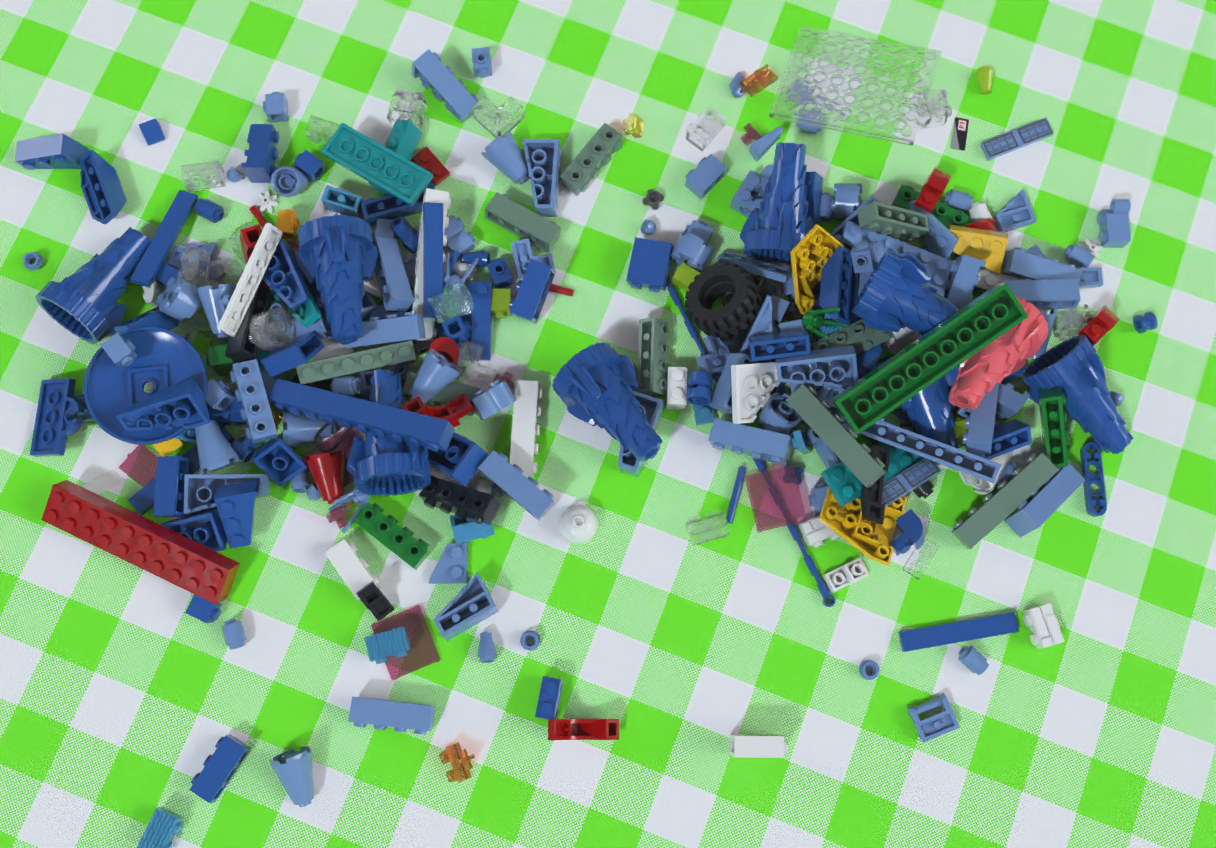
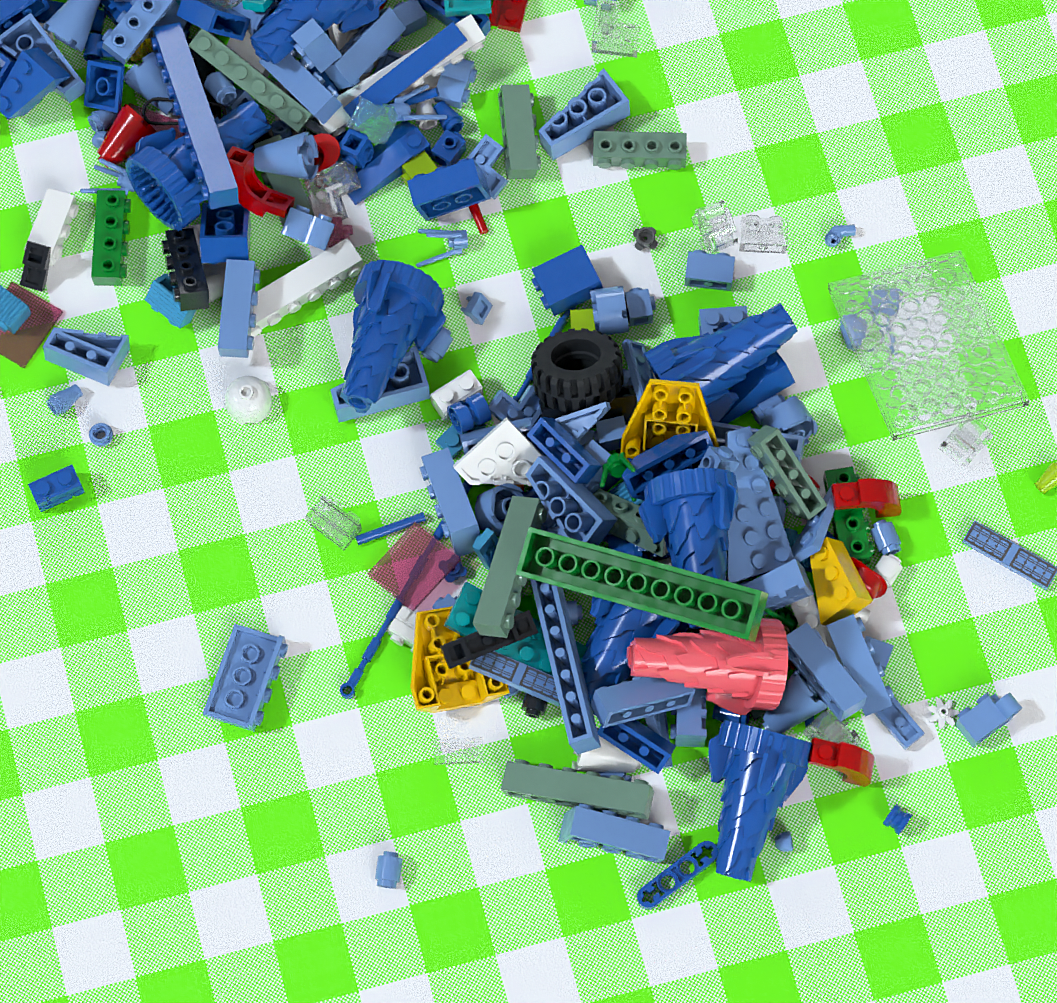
camera: 60 degrees right, 5 degrees down
(338, 516) = (93, 177): clear pink tile -> none
(372, 300) = (316, 46): none -> medium blue brick
(406, 233) = (420, 29): blue piece -> none
(451, 565) = (122, 312): medium blue wing -> none
(507, 158) = (575, 68): medium blue cone -> none
(565, 314) = (456, 239): none -> medium blue plant
(583, 729) = (47, 536): red arch -> none
(625, 333) = (477, 308): none -> medium blue tile
(634, 125) = (710, 165): clear yellow tile -> none
(648, 227) = (610, 254): medium blue hinge -> none
(652, 357) = (470, 348): sand green brick -> none
(682, 150) = (715, 227): none -> clear brick
(751, 135) = (792, 284): tile -> none
(758, 746) = (146, 709): white brick -> none
(759, 80) = (859, 250): clear orange hips -> none
(763, 144) = (796, 304): medium blue slope -> none
(776, 662) = (245, 677): none -> medium blue bracket
(845, 575) = (385, 689): white slope -> none
(875, 669) = (304, 767): medium blue plate -> none
(912, 532) = (473, 723): blue brick -> none
(936, 724) = (295, 875): medium blue plate -> none
(958, 632) = (409, 840): blue tile -> none
(959, 133) = (970, 494): sticker -> none
(1015, 214) = (917, 607): medium blue wing -> none
(1043, 626) = (476, 918): white brick -> none
(1053, 427) = (690, 783): green brick -> none
(1078, 255) = (920, 702): medium blue brick -> none

